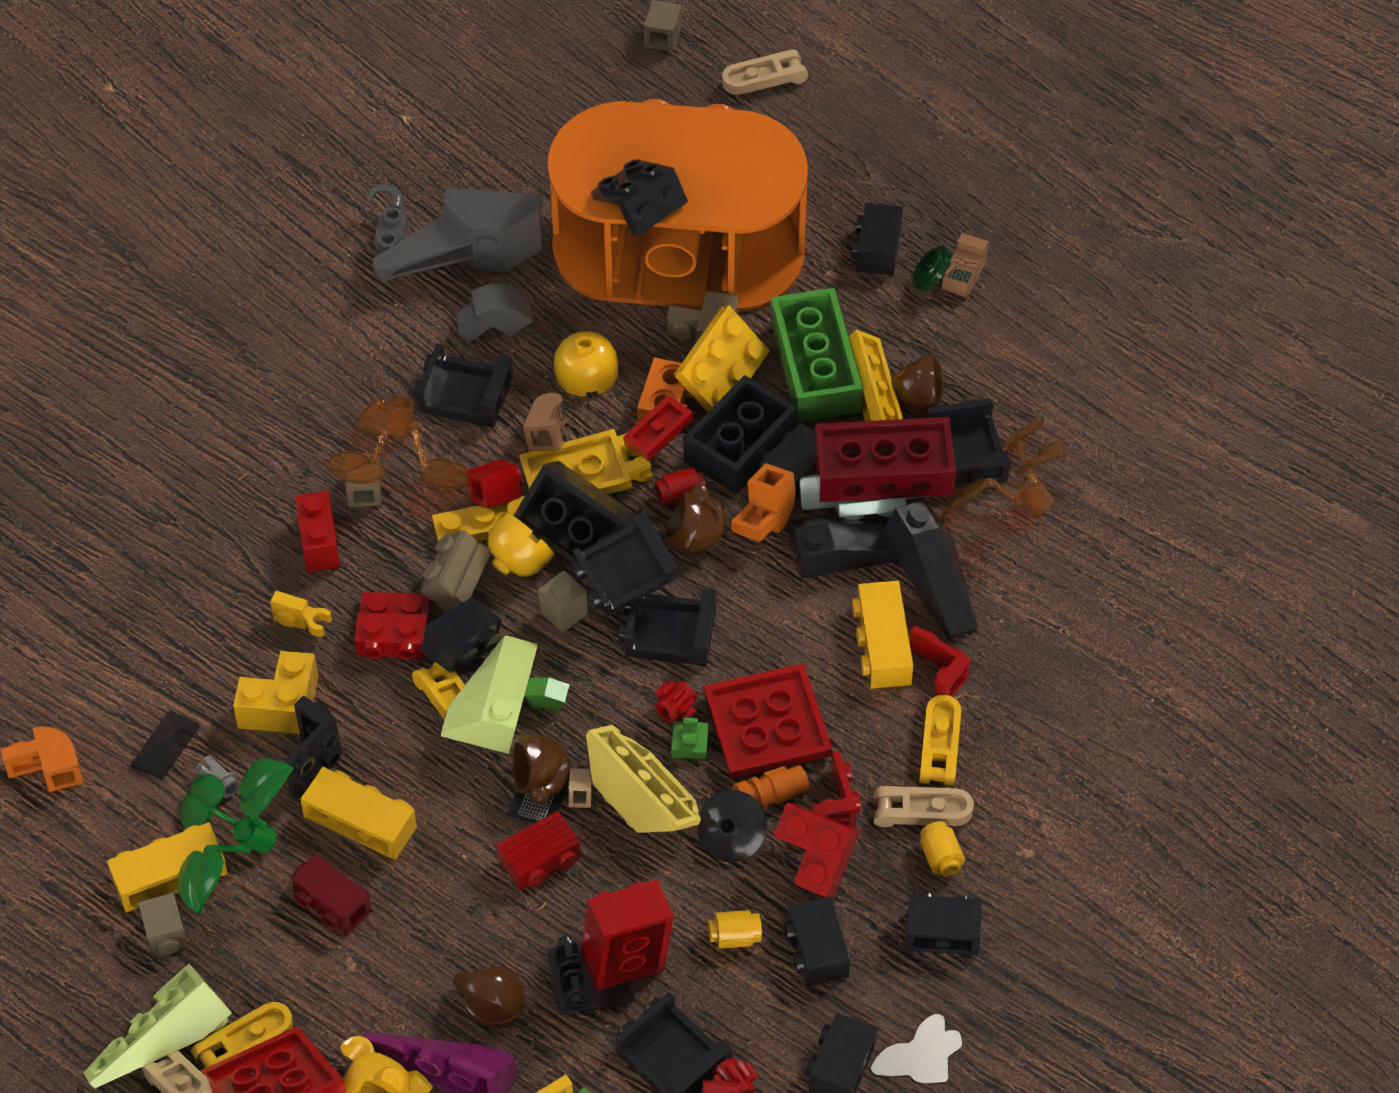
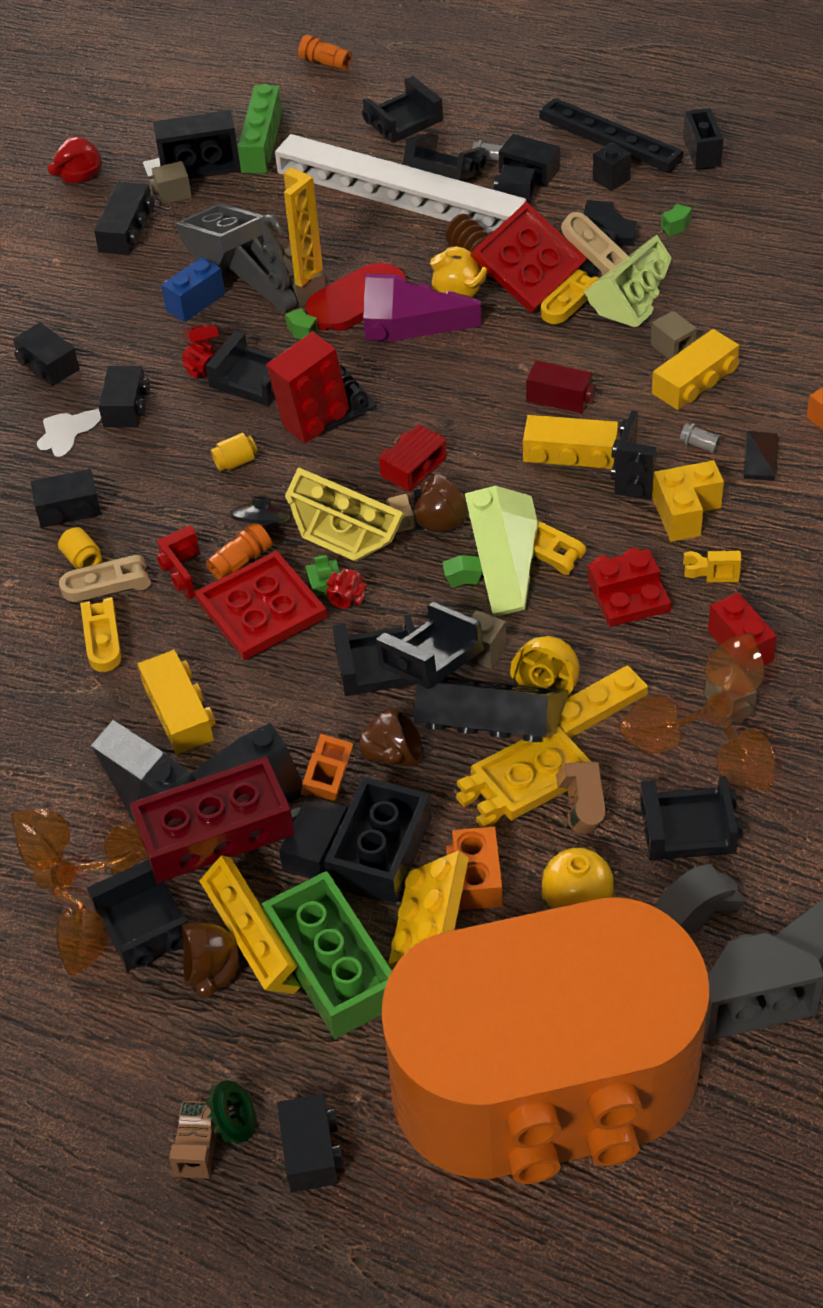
camera: 165 degrees right, 5 degrees down
(258, 787) = (646, 397): green plant -> none
(454, 570) = (594, 631): dark tan brick -> none
(461, 635) = (557, 578): black brick -> none
(492, 995) = (404, 362): reddish brown piece -> none
(494, 483) = (600, 717): red brick -> none
(643, 192) = (571, 922): black bracket -> none
(658, 428) = (460, 801): red plate -> none
(673, 485) = (424, 775): red brick -> none
(817, 941) = (164, 460): black brick -> none
(826, 845) = (182, 500): red brick -> none
(952, 661) = (106, 695): red bracket -> none

